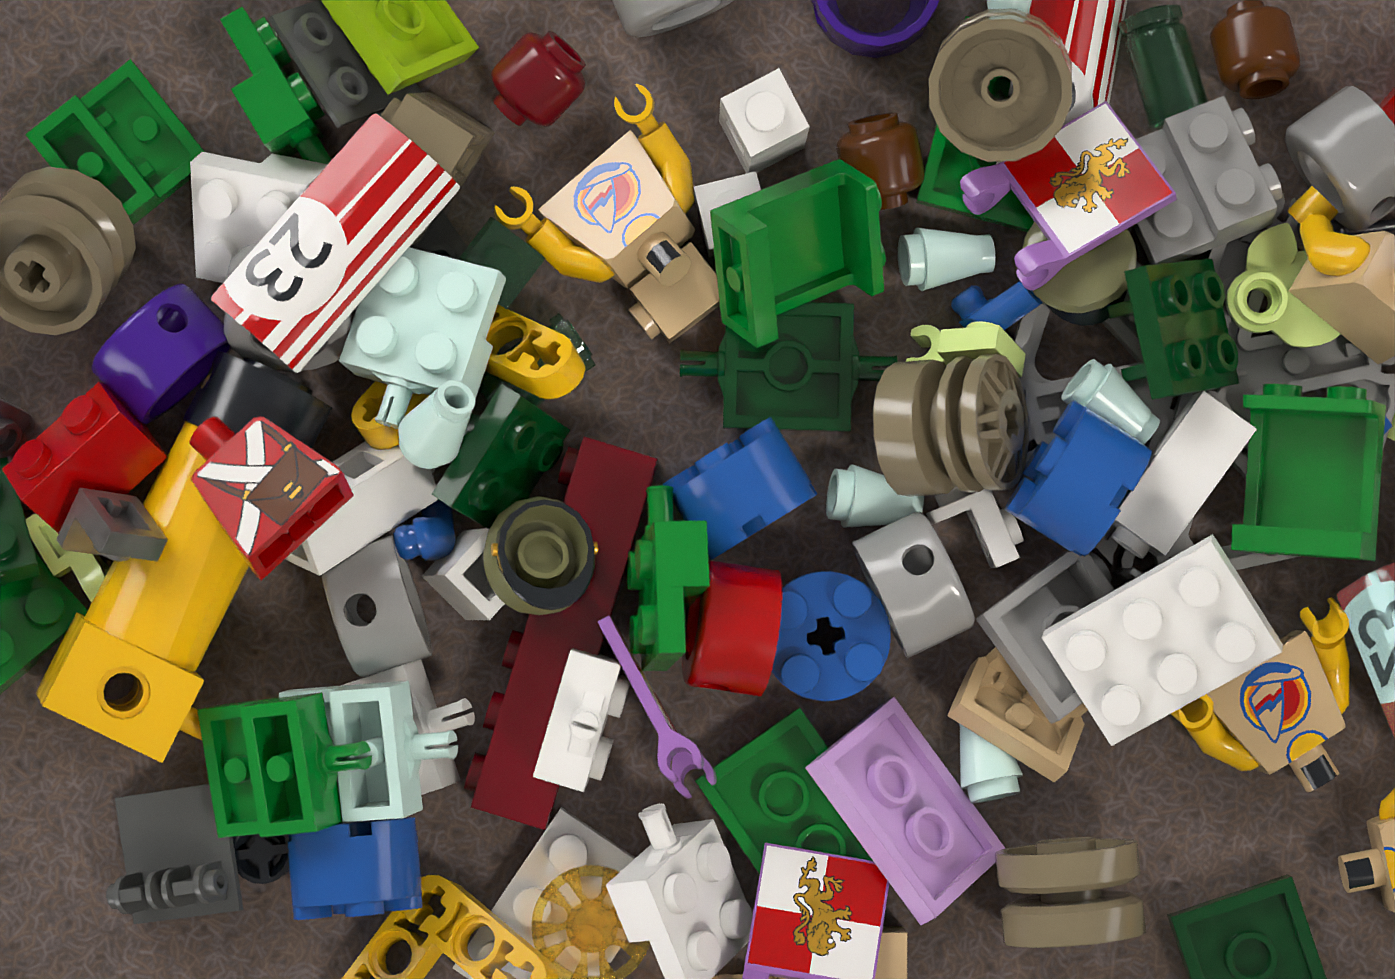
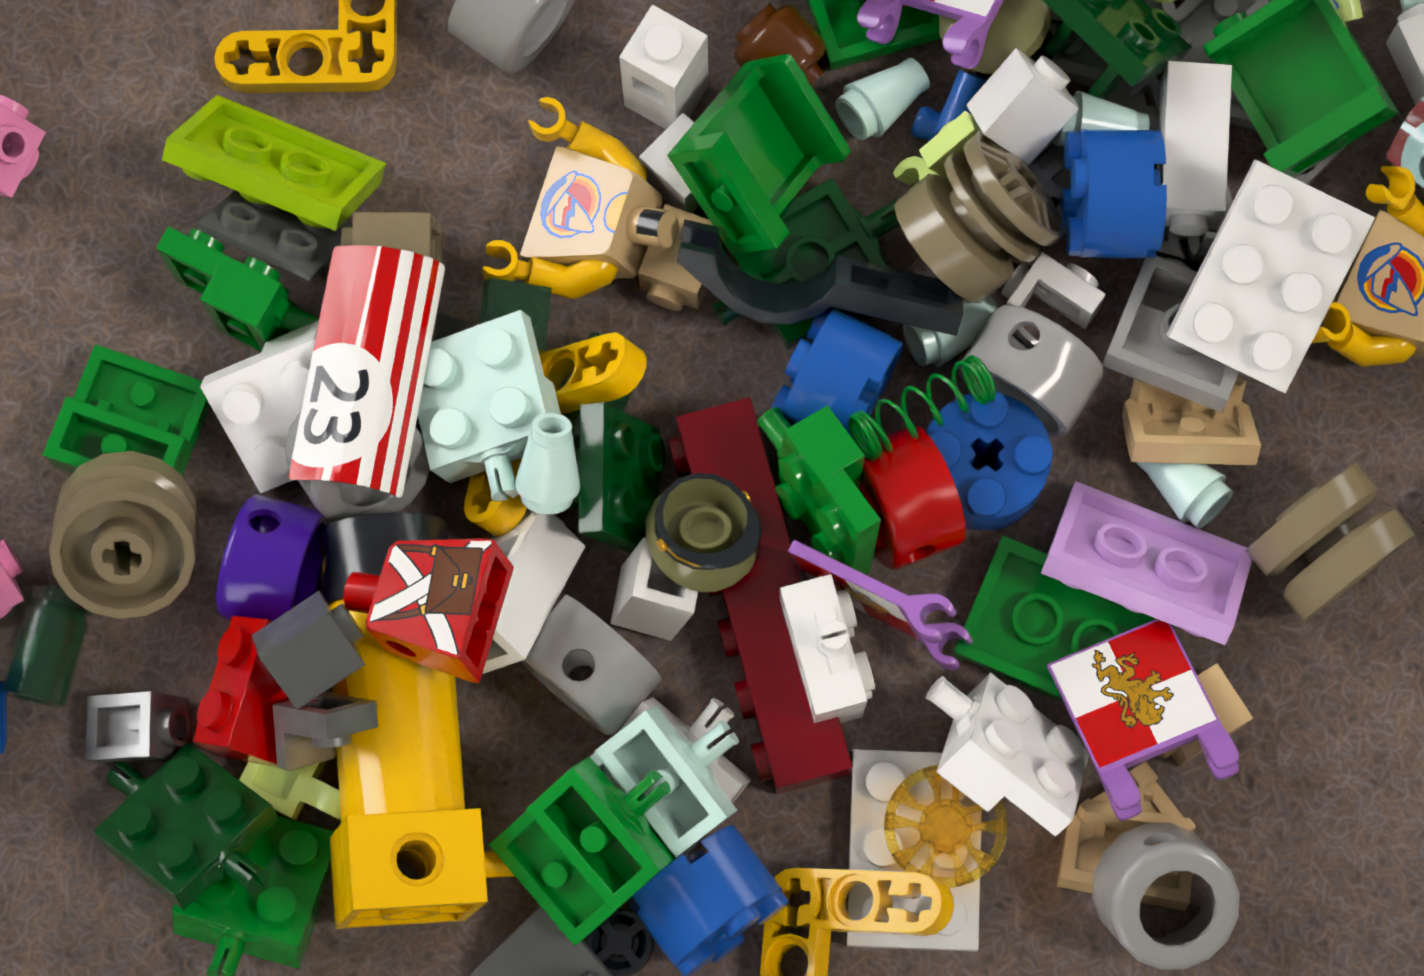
camera: 25 degrees left, 10 degrees down
(136, 462) = (310, 648): none -> dark grey brick
(428, 535) = (594, 580): blue arm -> none
(538, 79) = (452, 155): dark red head -> none
(793, 413) = (842, 285): none -> black piece
(853, 576) = (861, 420): none -> green piece
(1052, 351) = (1023, 105): none -> white brick

